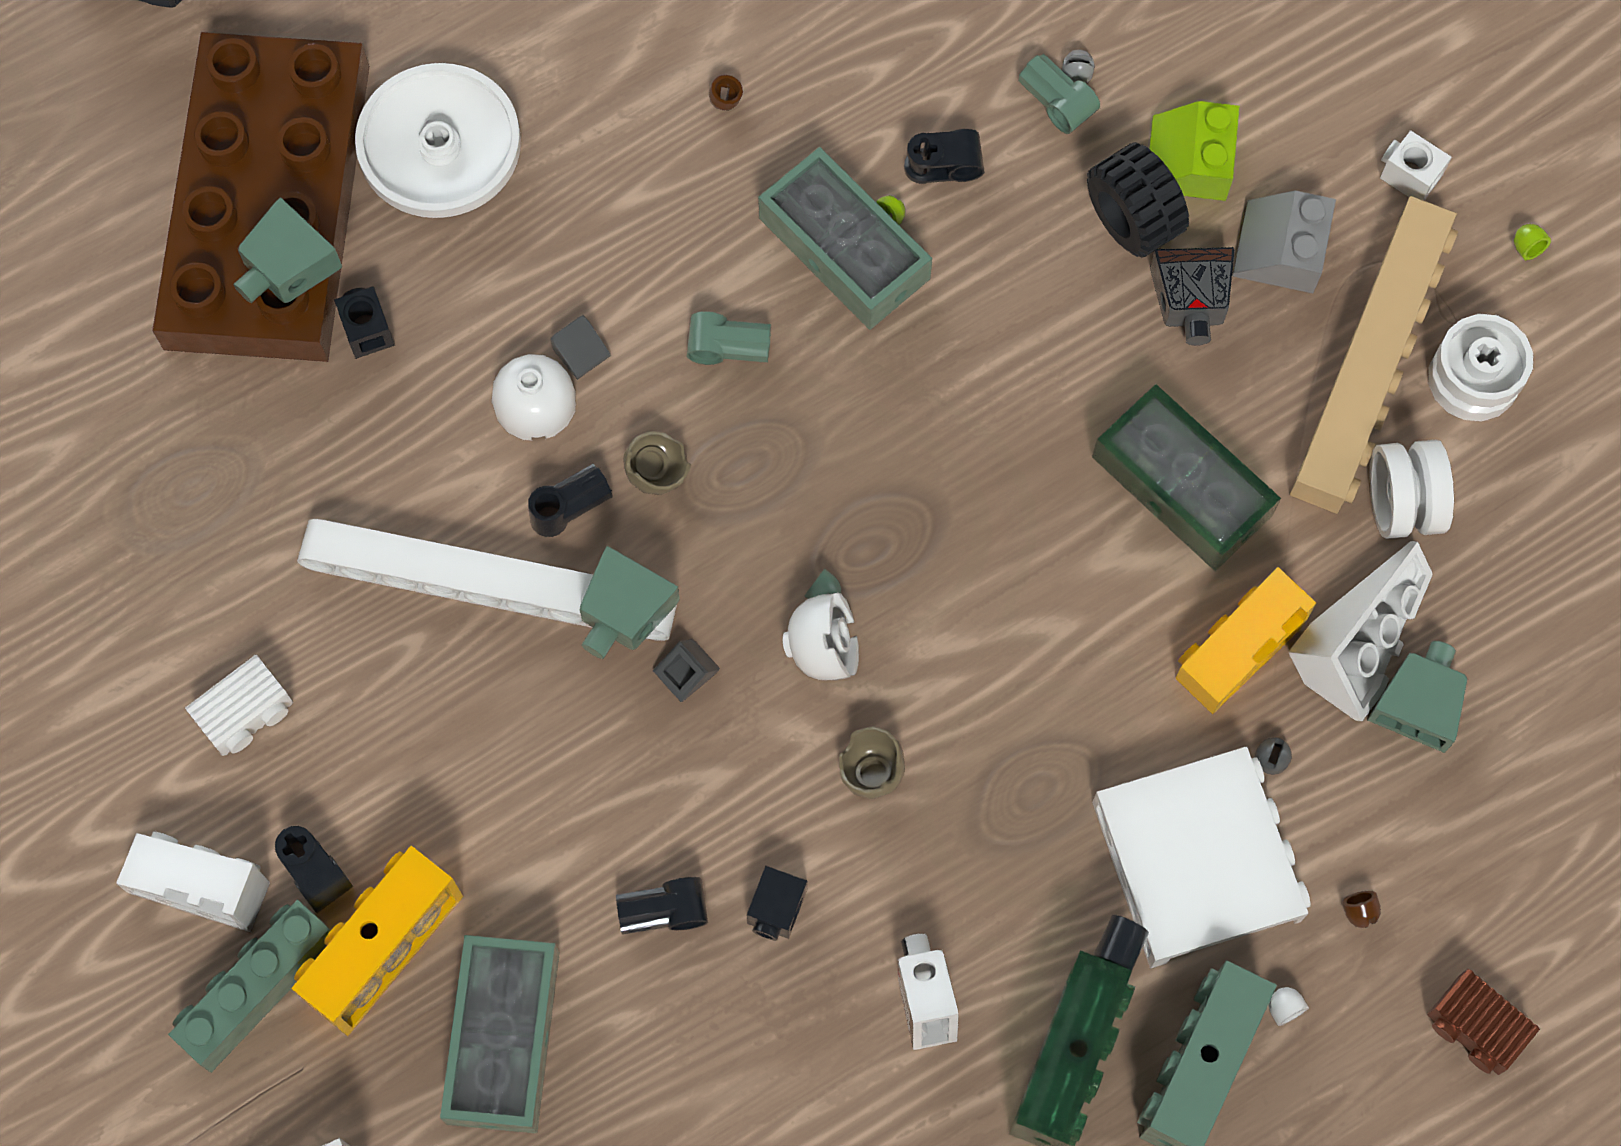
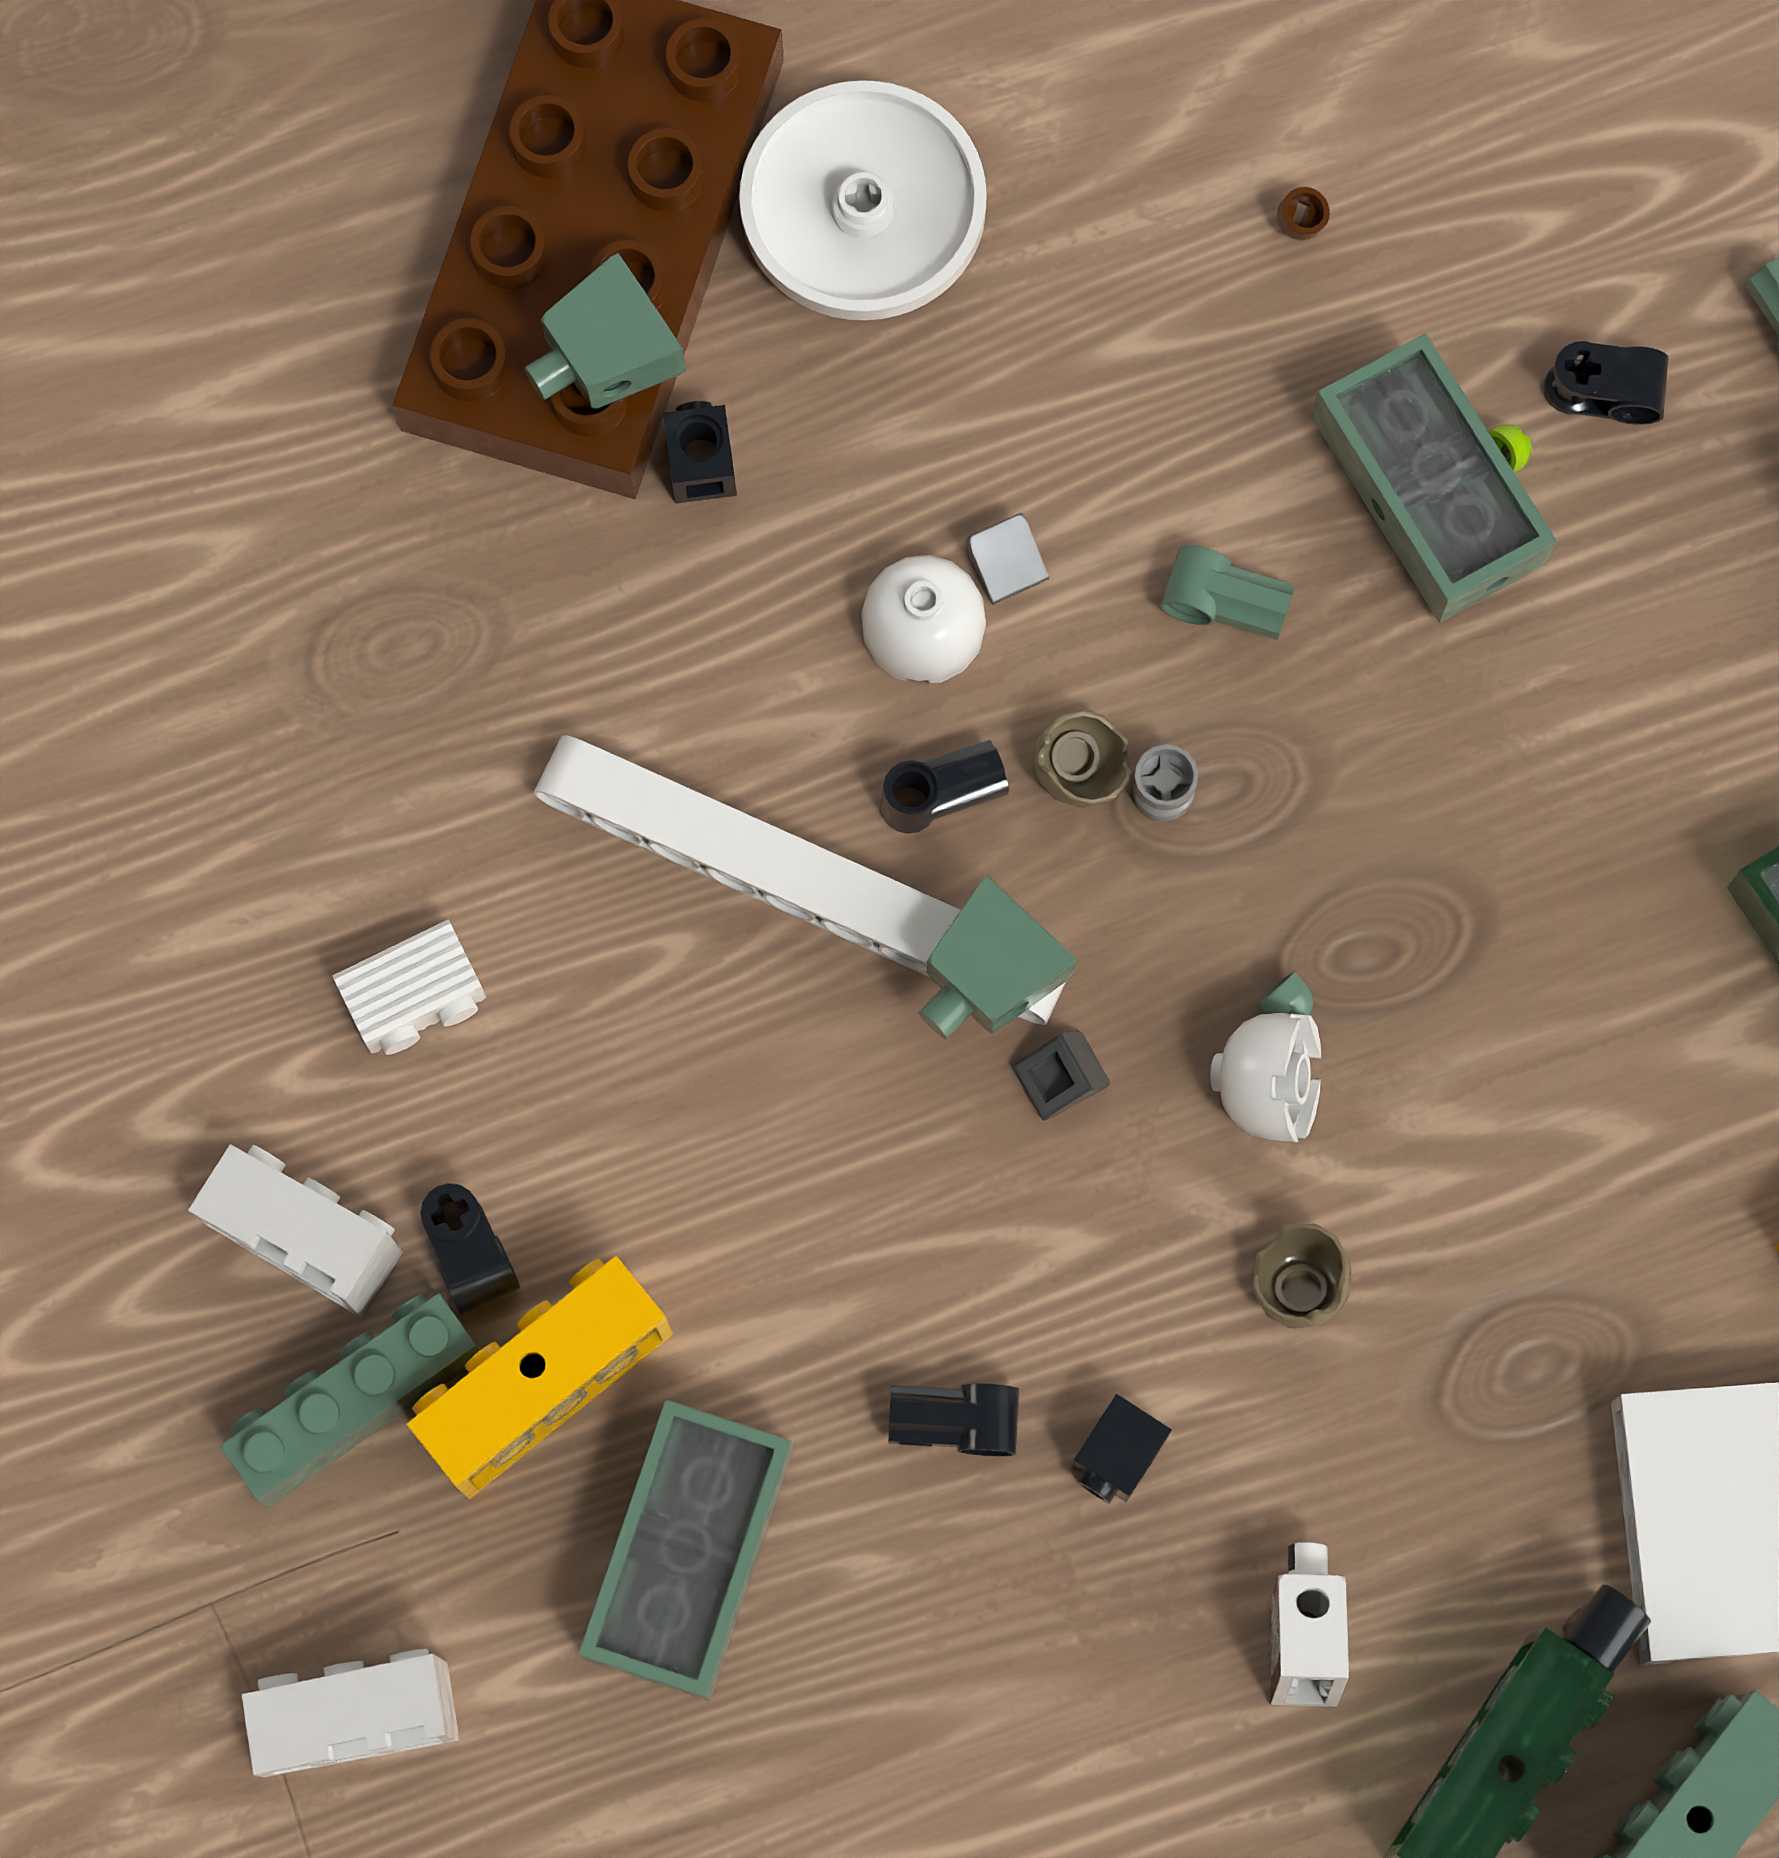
camera: 15 degrees right, 5 degrees up
(713, 457) = (1164, 769): none -> light grey wheel

